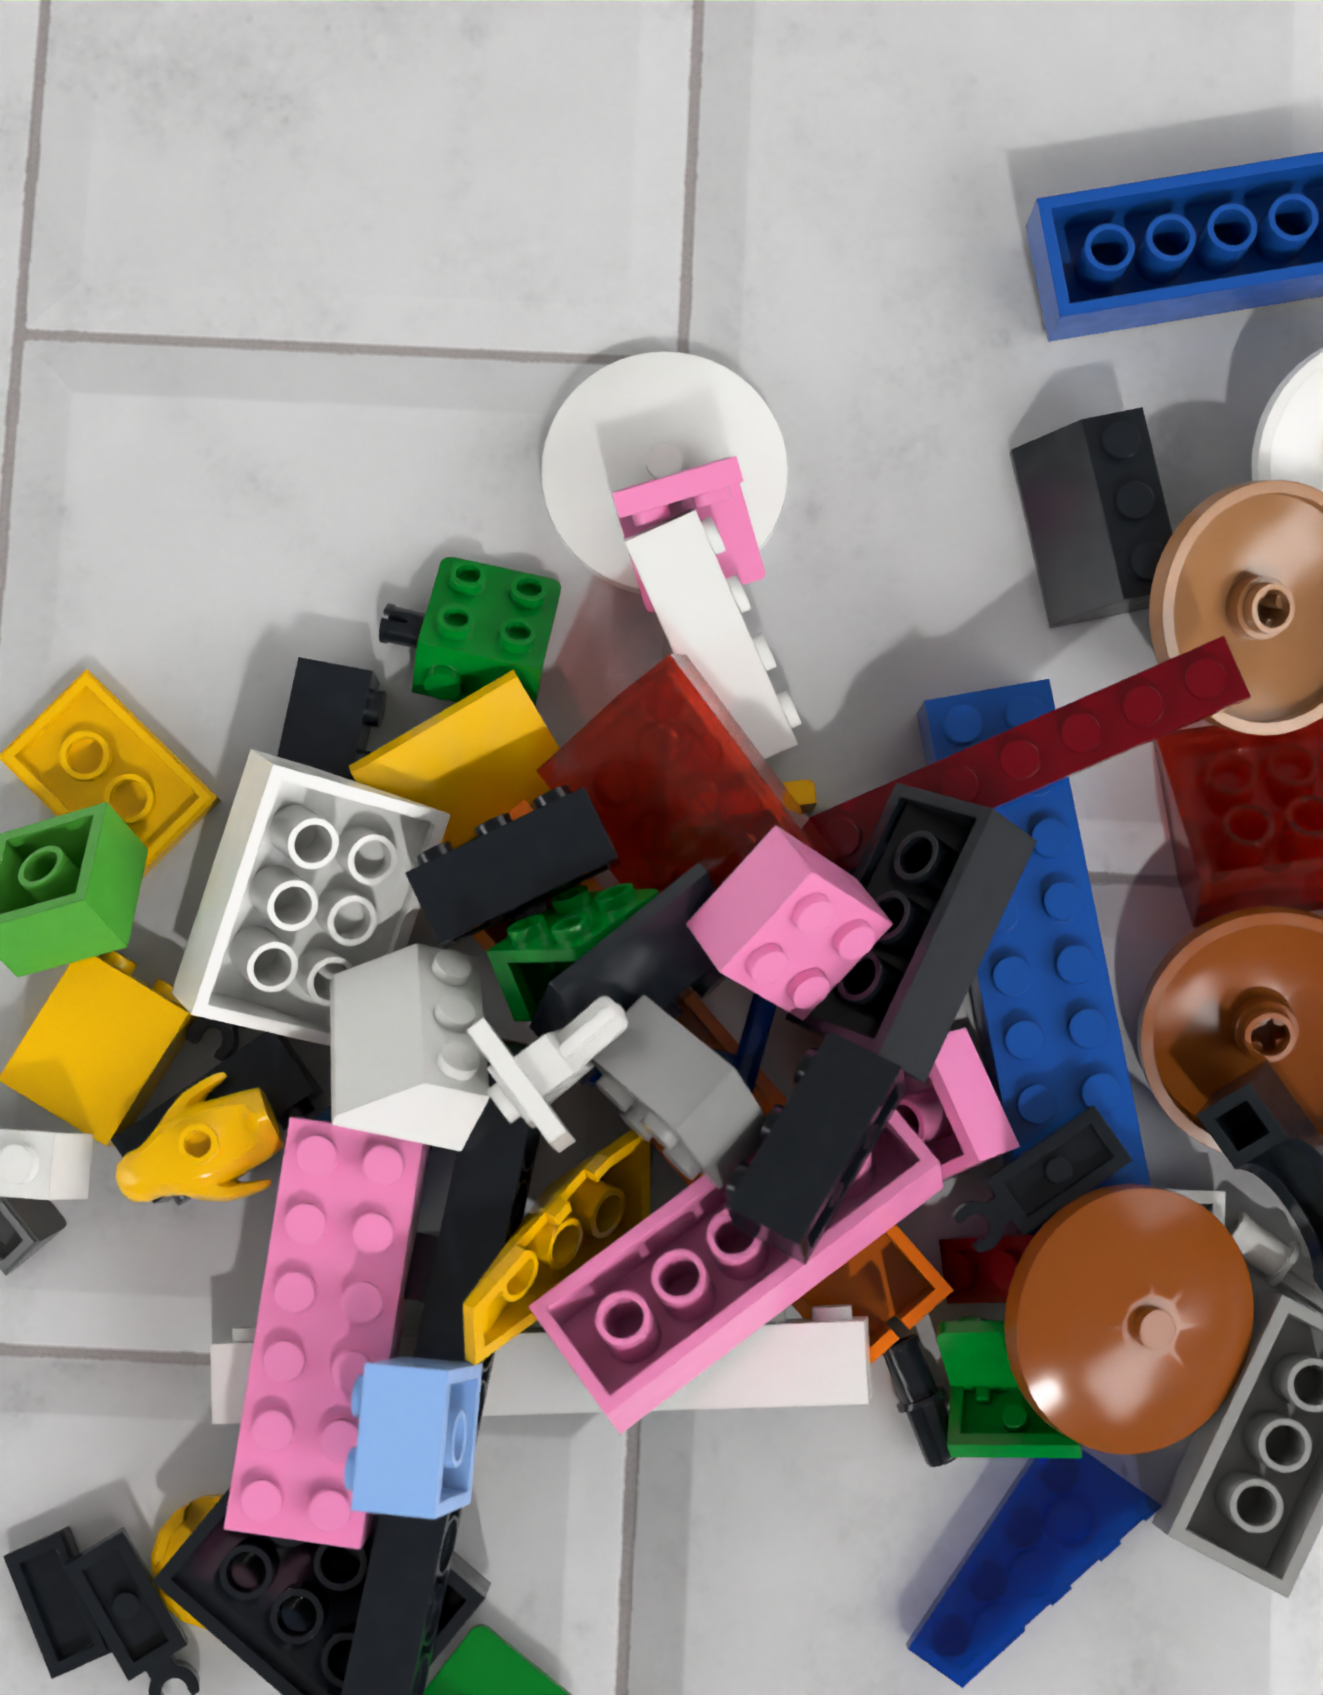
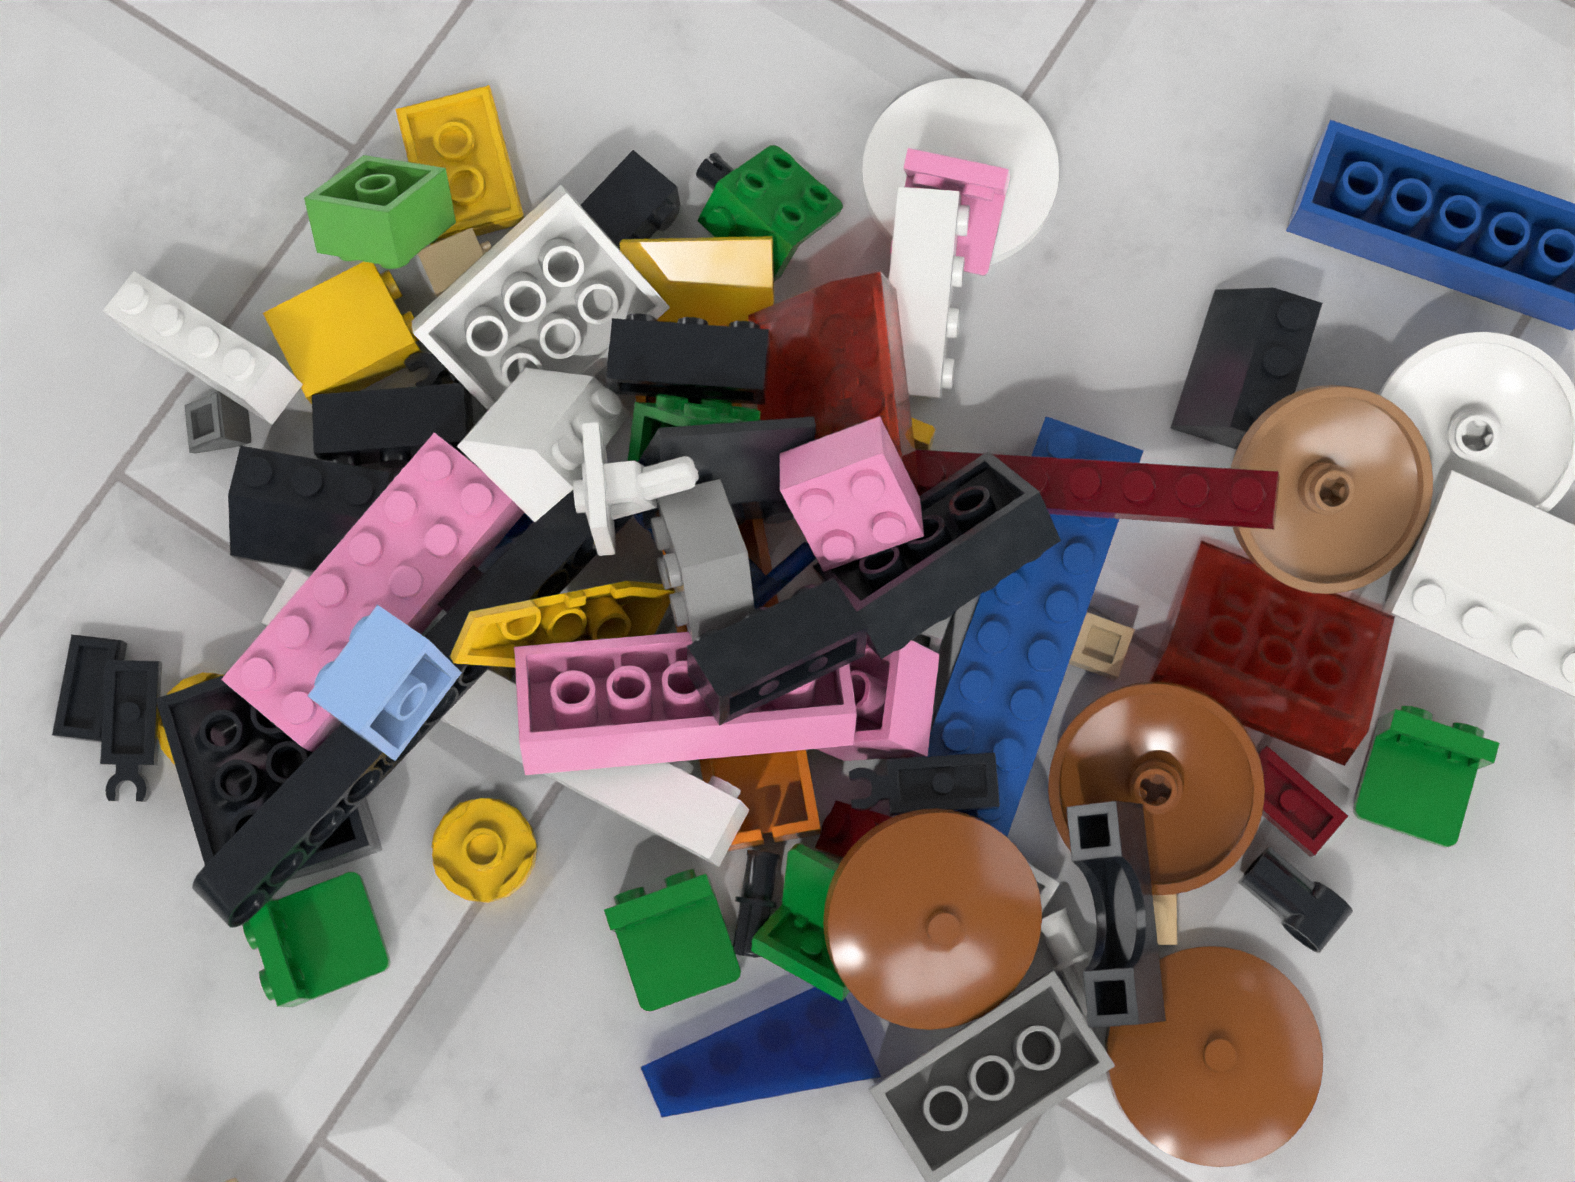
camera: 35 degrees right, 5 degrees down
(174, 895) = (451, 258): none -> tan brick
(177, 1271) = (296, 507): none -> black slope
(204, 1147) = (367, 428): yellow animal -> none
(599, 1517) = (484, 850): none -> yellow tile
(862, 1494) = (673, 940): none -> green bracket
(1124, 910) = (1101, 646): none -> tan plate

